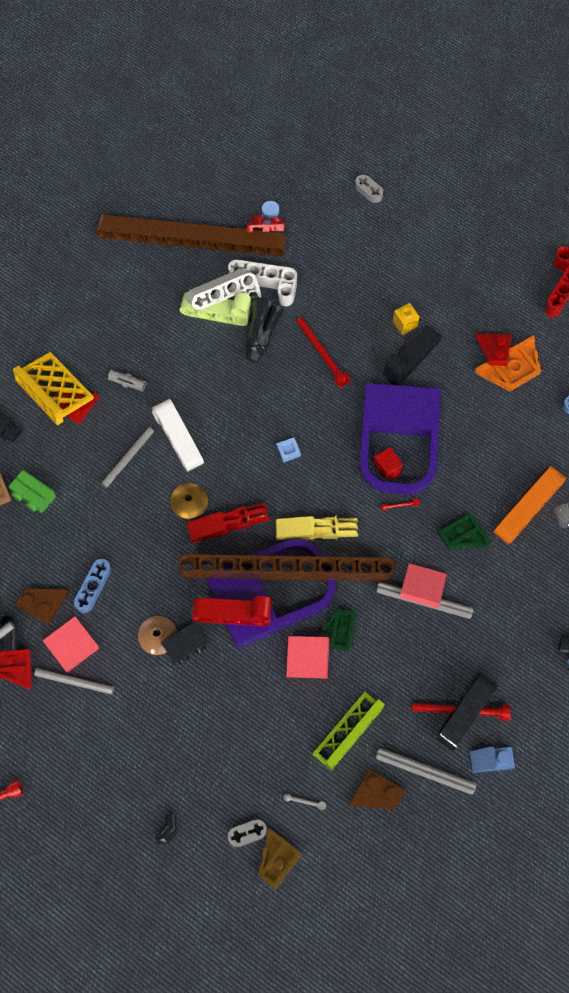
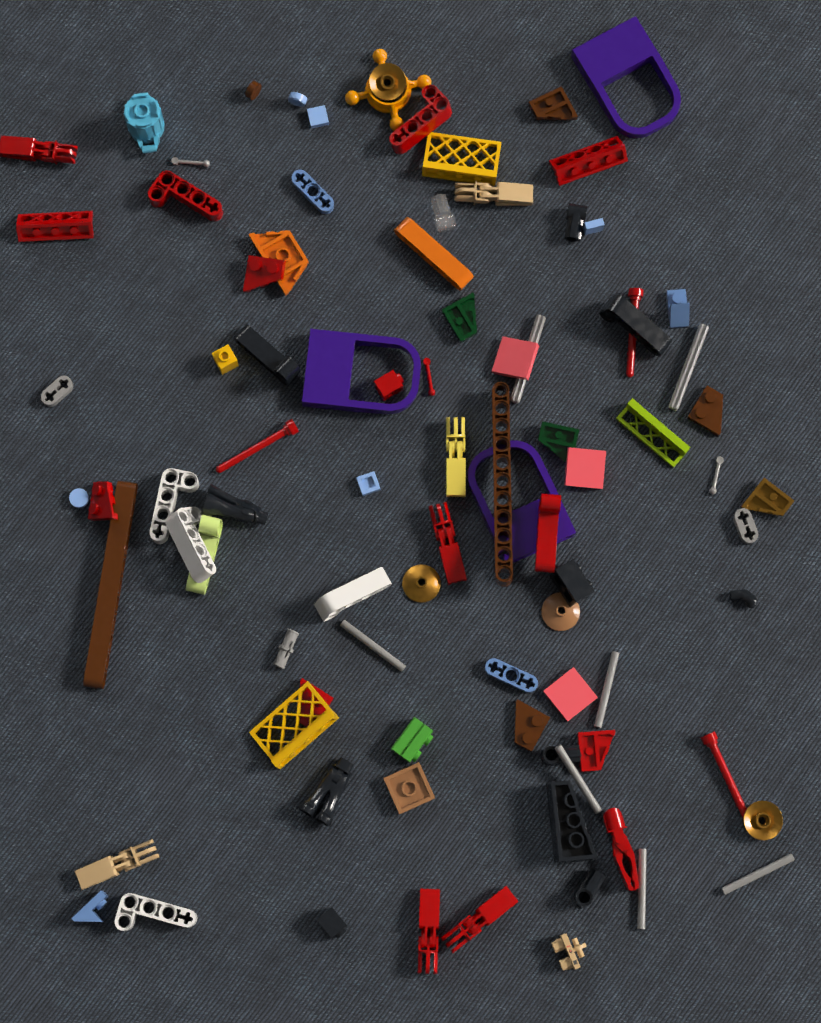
camera: 95 degrees left, 10 degrees up
(525, 179) = (42, 229): none -> red fence

